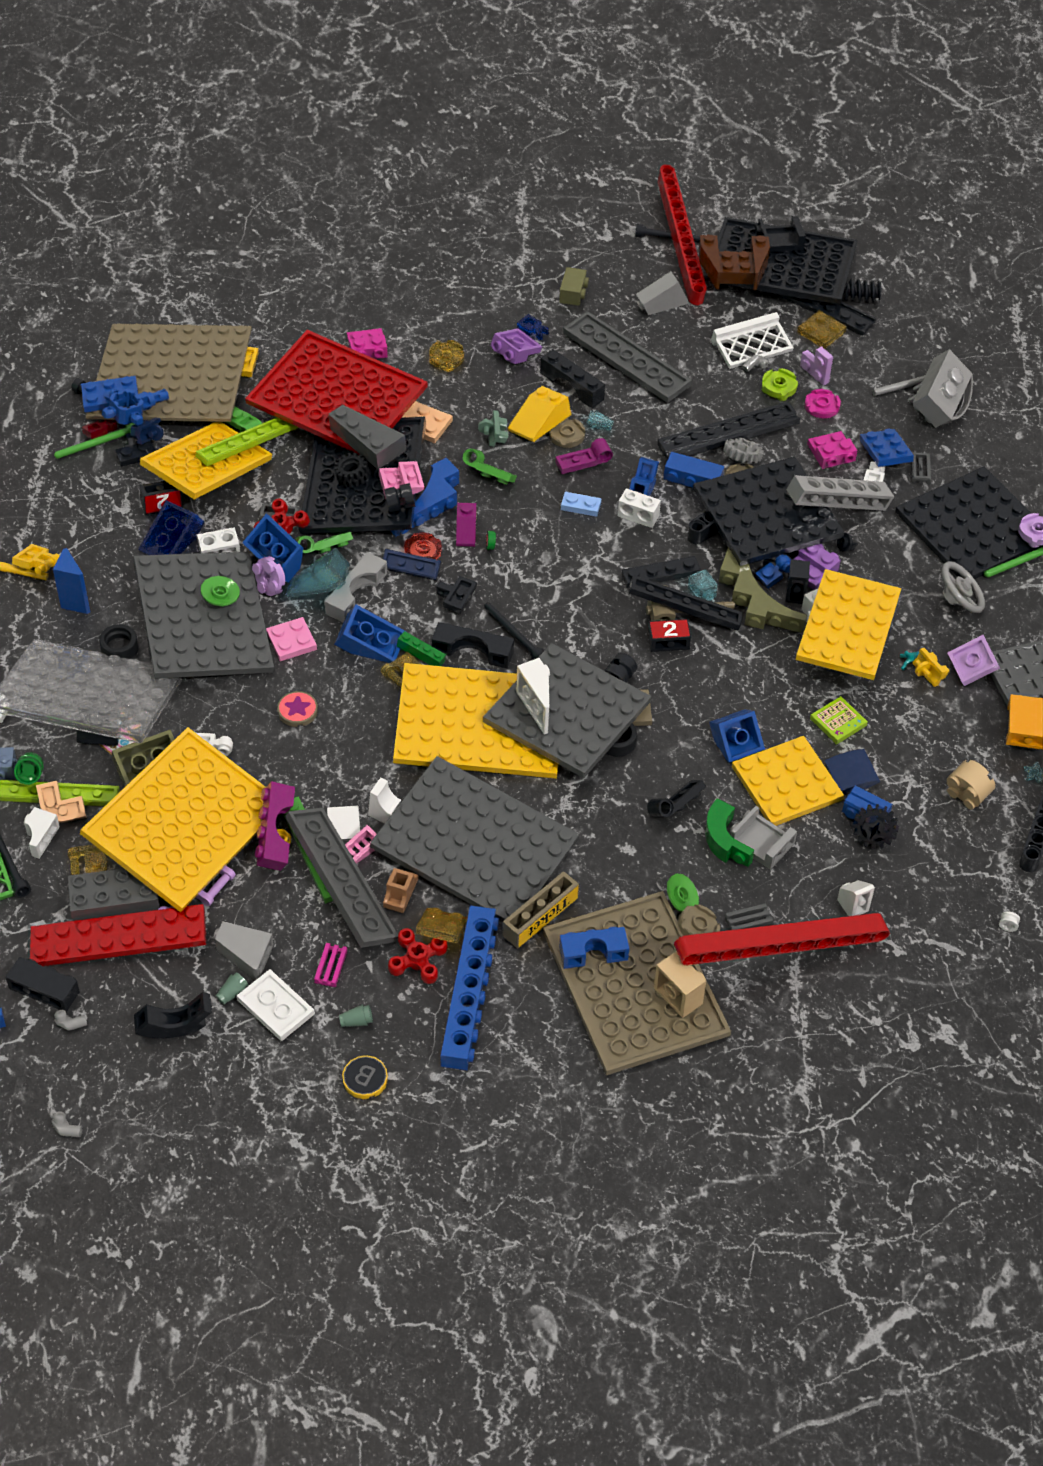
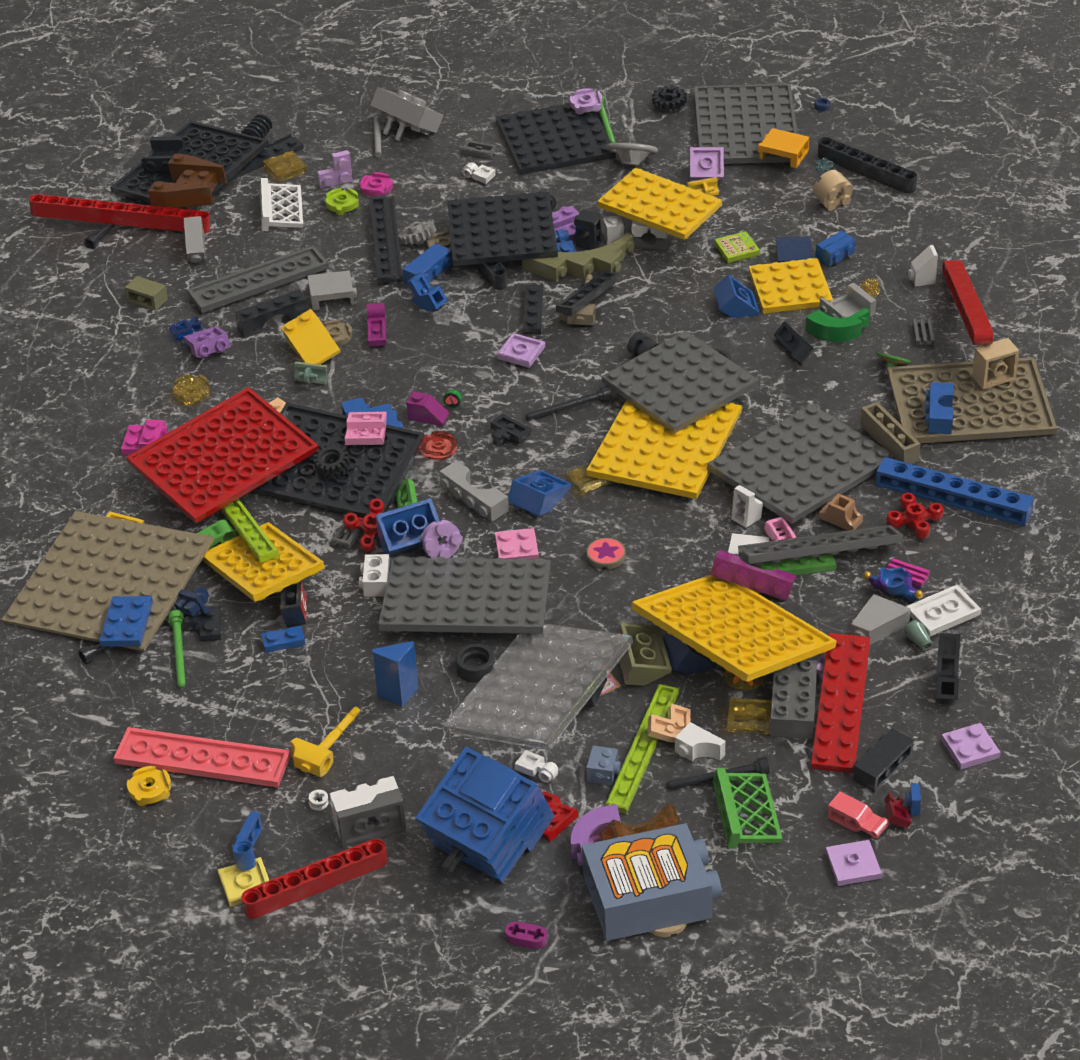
camera: 70 degrees left, 10 degrees down
(28, 768) = (624, 736): green wheel -> none
(35, 557) = (336, 709): yellow plate -> none
(63, 1127) = (1043, 765): light grey arm -> none
(67, 1022) = (927, 750): light grey arm -> none
(82, 1060) = (970, 746): none -> lavender plate
(98, 429) = (164, 645): dark red plate -> none
(126, 505) = (283, 639): none -> blue plate
(136, 402) = (165, 598): blue piece -> none
(171, 531) = (343, 605): clear blue slope -> none
(220, 591) = (454, 568): bright green dish -> none
(223, 744) = (627, 615): white plate -> none
(300, 952) = (895, 583): none -> blue piece
(321, 576) = (461, 501): clear light blue slope -> none
(357, 1016) = (968, 561): sand green cone -> none
(365, 1077) = (1029, 568): black tile -> none
(366, 436) = (305, 434): dark grey wedge -> none
(393, 494) = (395, 427): black wheel -> none
(412, 564) = (460, 450): dark blue tile -> none
(420, 649) = (569, 461): green piece -> none
(441, 925) = (888, 494): clear yellow plate -> none
(452, 638) = (563, 441): black arch -> none
(487, 470) = (361, 387): bright green plate -> none
(534, 690) = (678, 377): white slope -> none
(581, 504) = (429, 340): light blue plate -> none
(586, 575) = (521, 350): none -> lavender plate
(599, 420) = (333, 309): clear light blue cone -> none
(628, 410) = (331, 286): none -> light grey panel
(639, 508) = (456, 303): white brick -> none
(669, 635) = (611, 315): brick -> none
(698, 920) = (928, 355): dark tan tile -> none
(703, 585) = (564, 285): clear light blue brick -> none
(755, 360) = (307, 207): light grey arm -> none
(801, 851) = (870, 286): none -> clear yellow gear
(832, 449) = (436, 189): dark pink plate -> none
(839, 493) = (505, 182): light grey brick -> none
(882, 833) = (861, 242): black gear -> none
(886, 447) = (452, 158): blue plate -> none
(1009, 921) = (964, 205): white bush -> none

